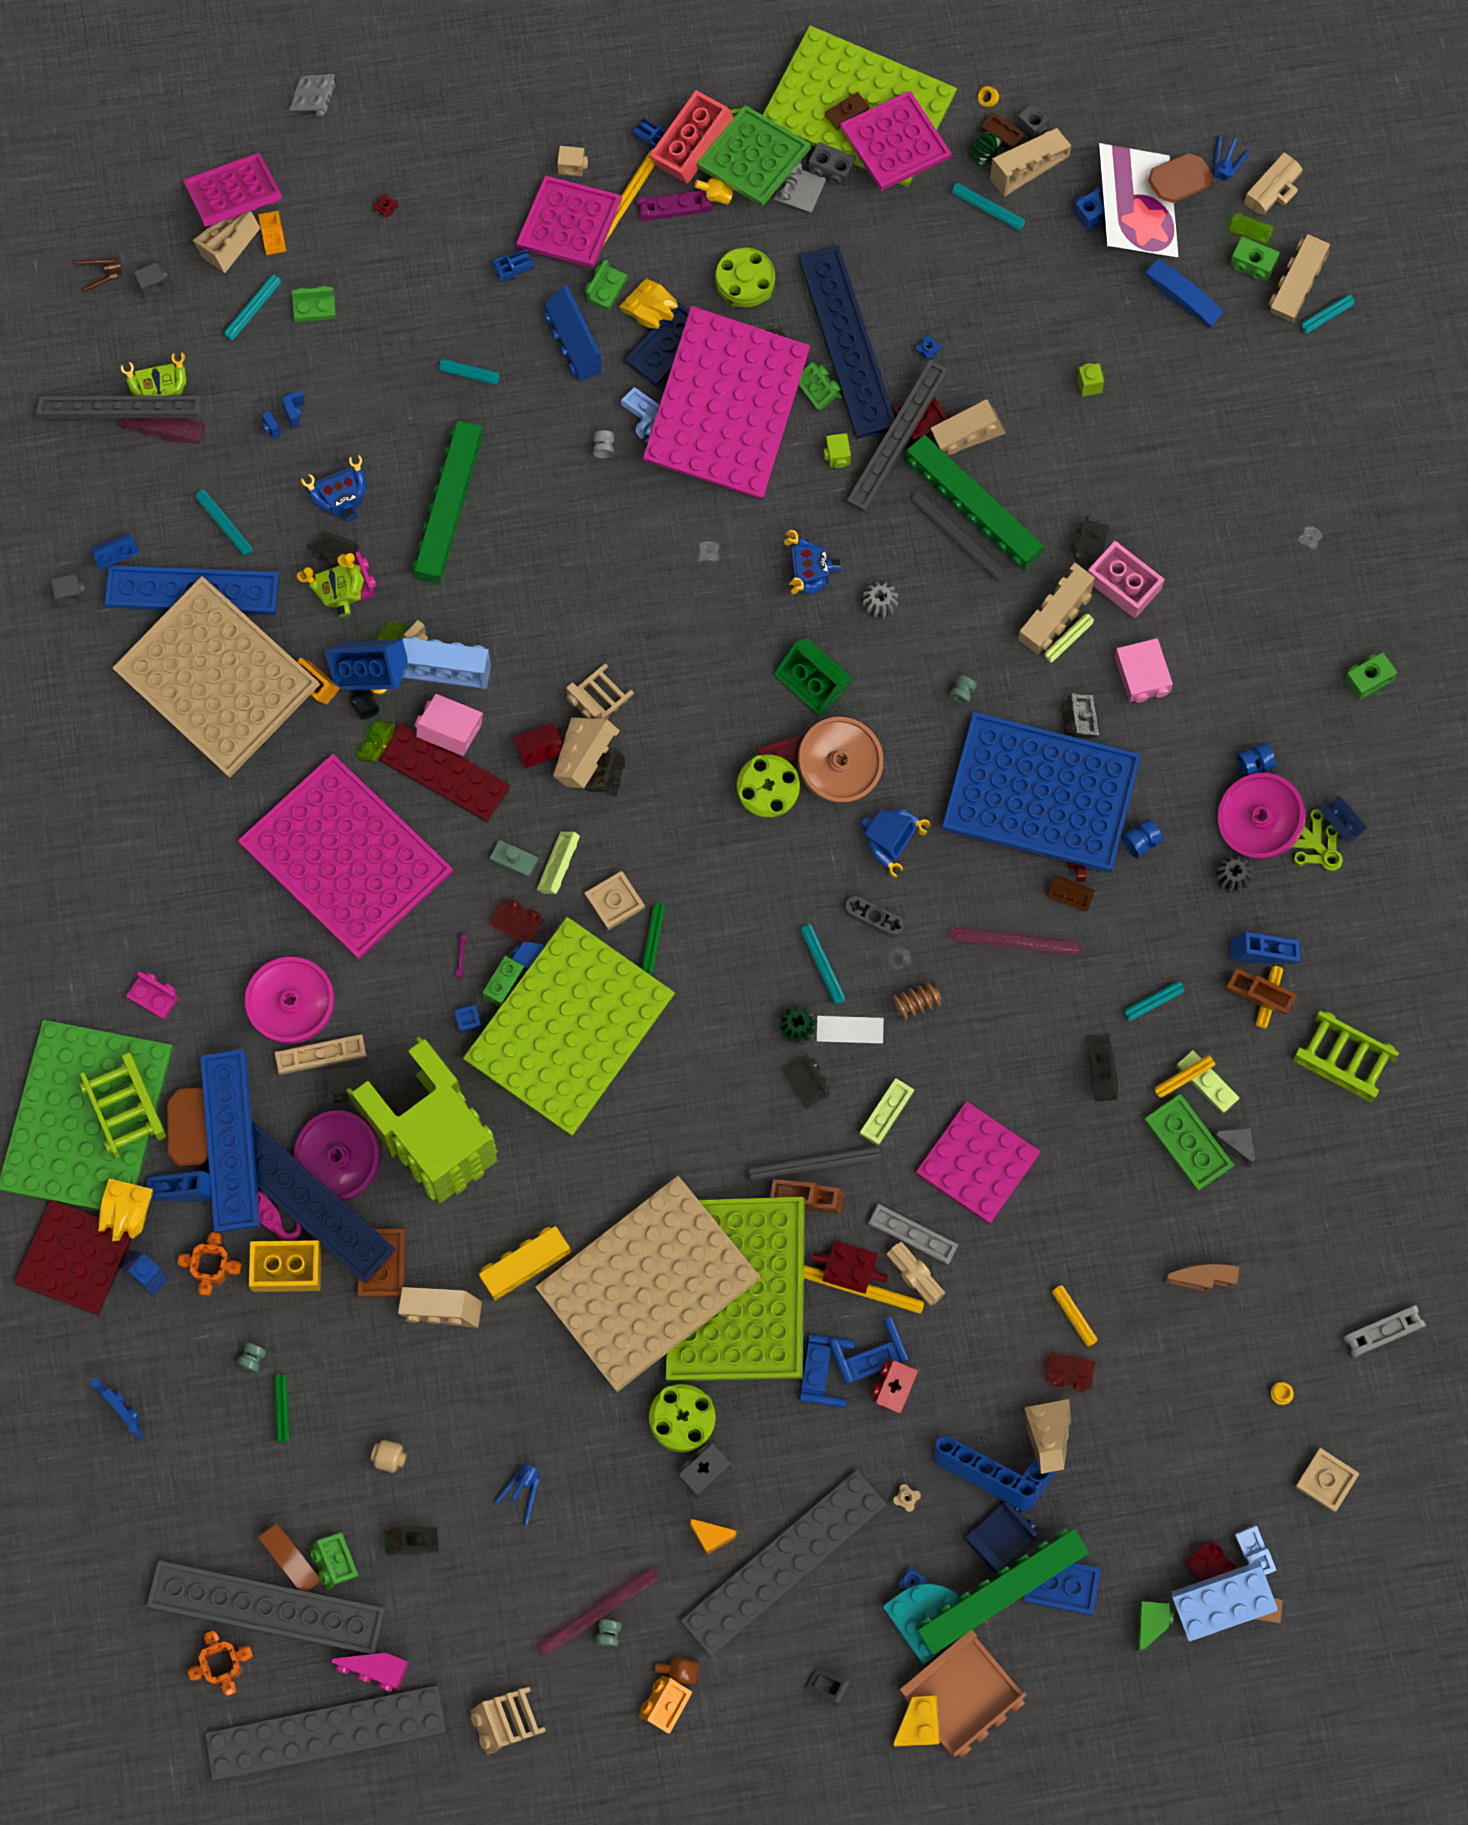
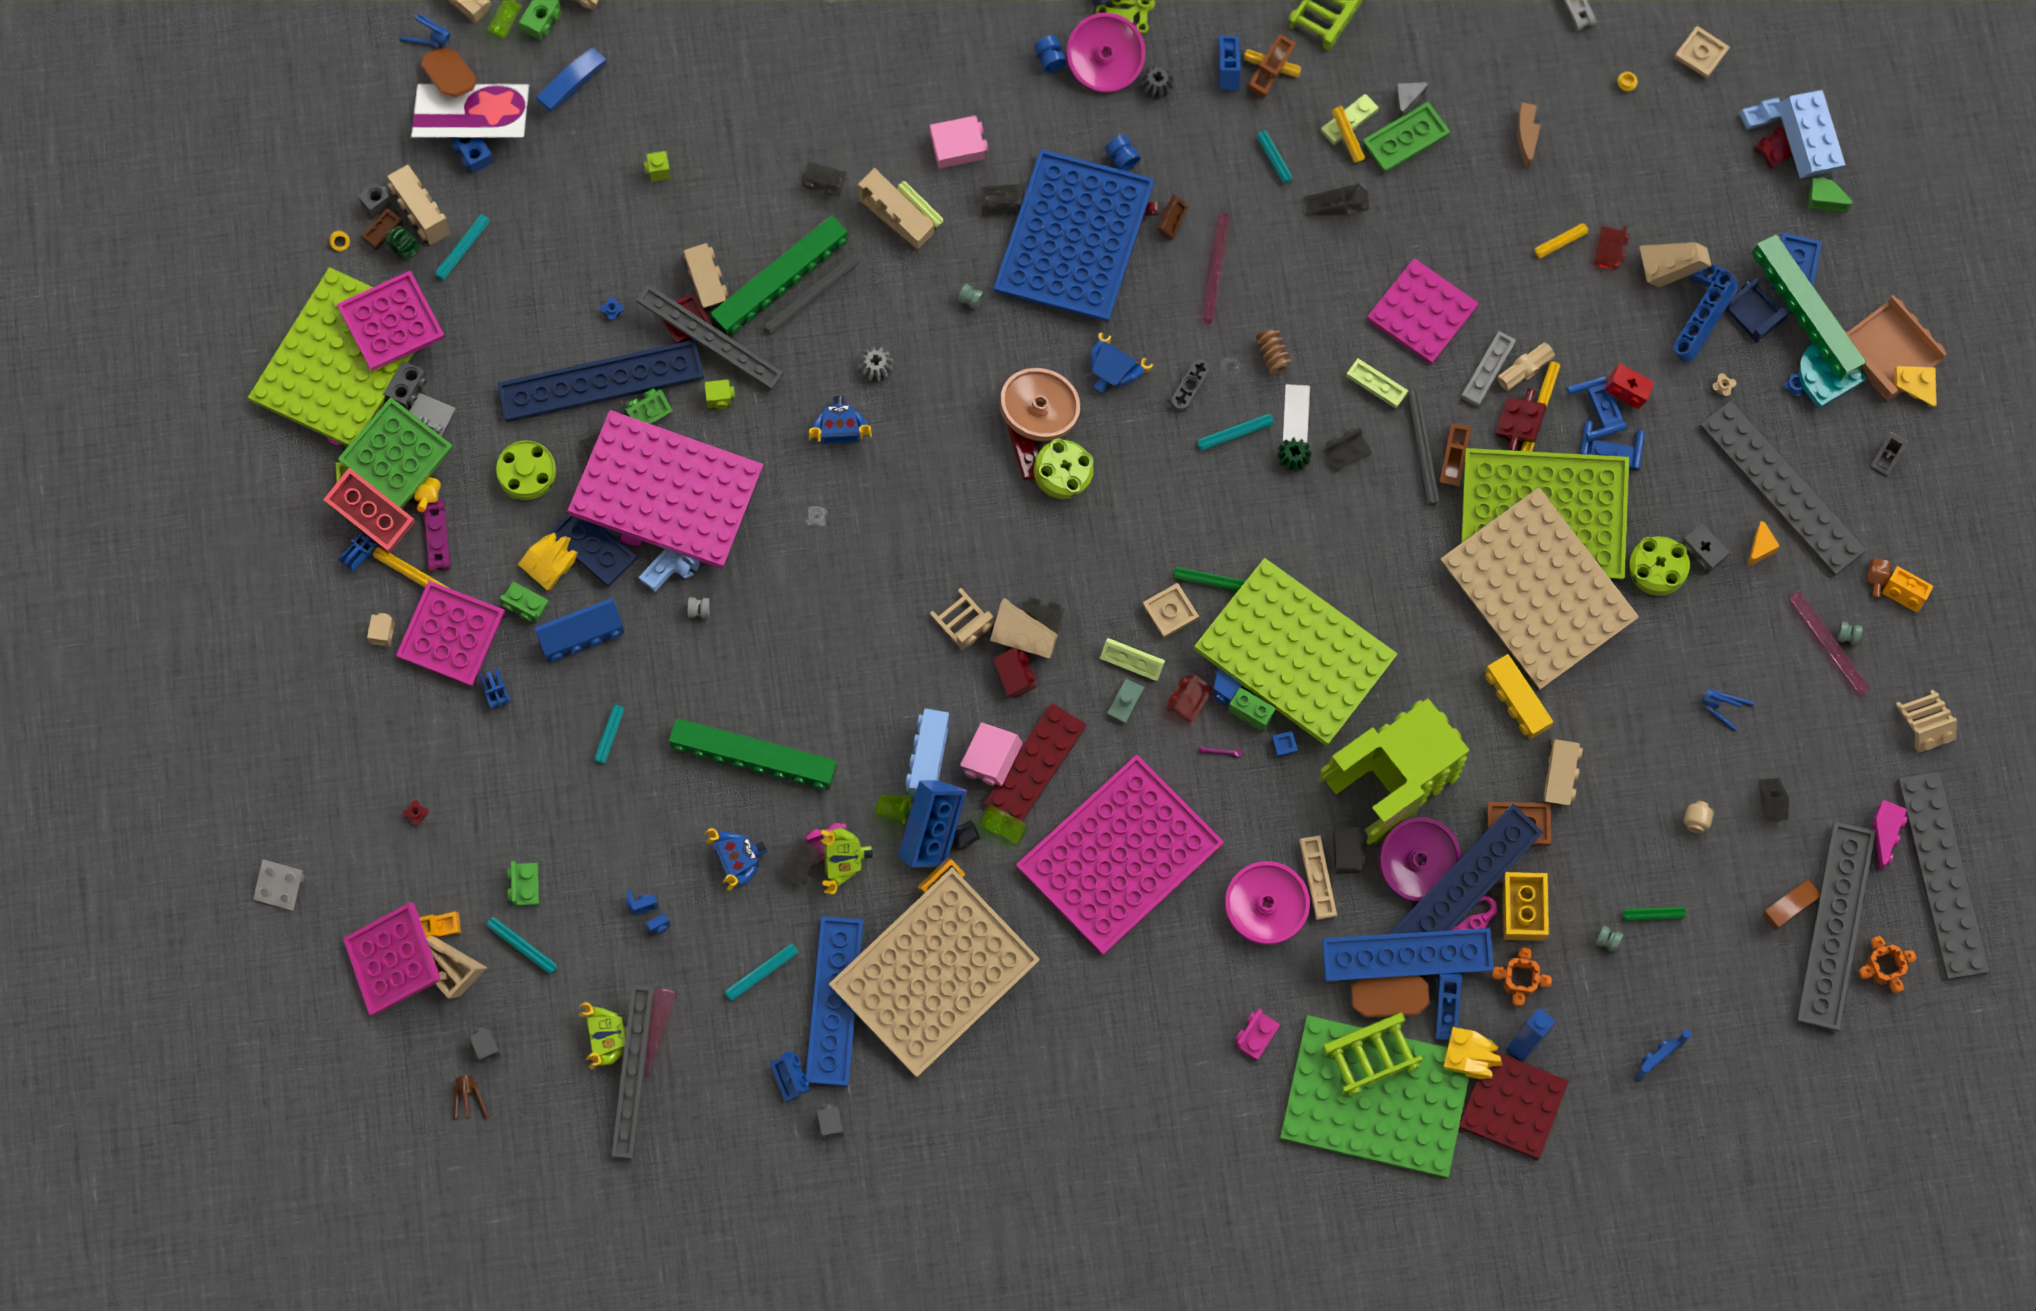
camera: 90 degrees left, 0 degrees up
(333, 1561) = (1793, 867): bright green bracket -> none
(417, 630) = (894, 786): tan tile -> none
(813, 676) = (952, 426): green slope -> none
(846, 110) = (352, 364): reddish brown plate -> none
(1125, 579) = (868, 148): bright pink brick -> none

